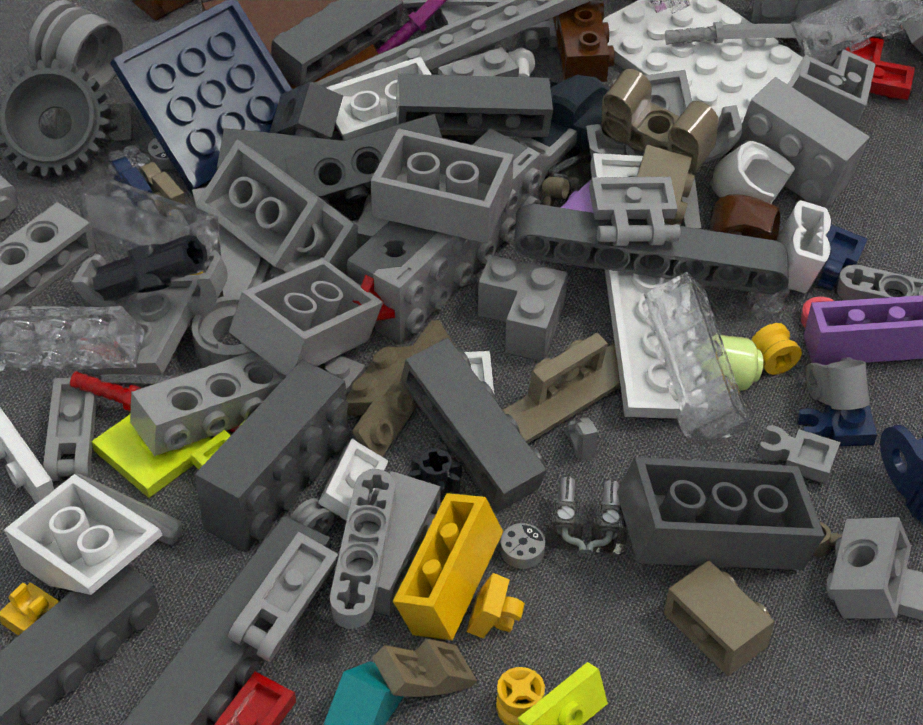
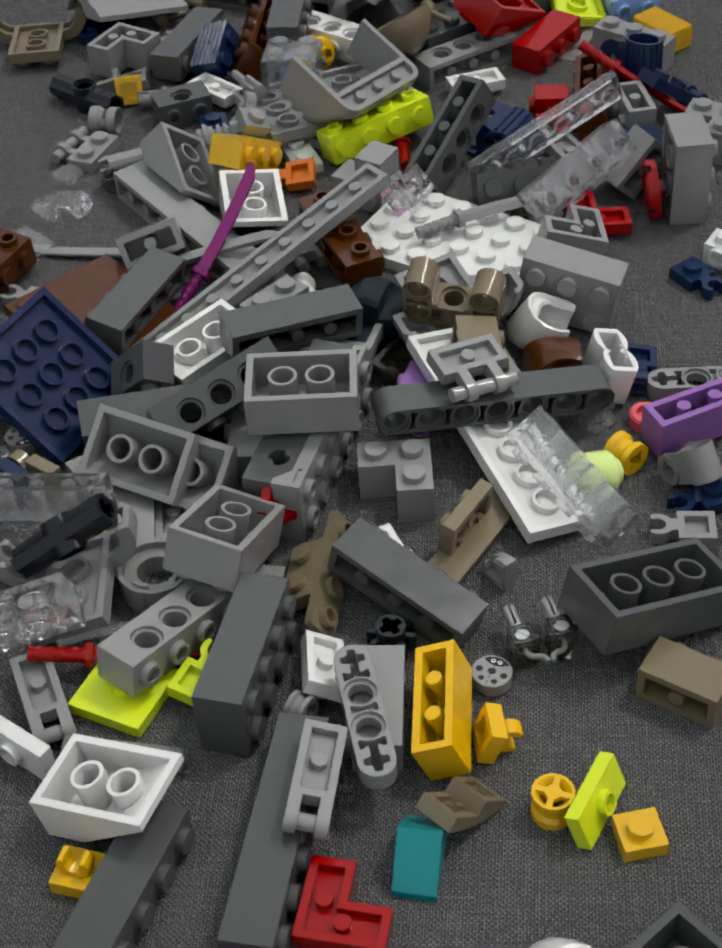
camera: 15 degrees left, 5 degrees down
(554, 188) = (383, 375): dark tan hand -> none

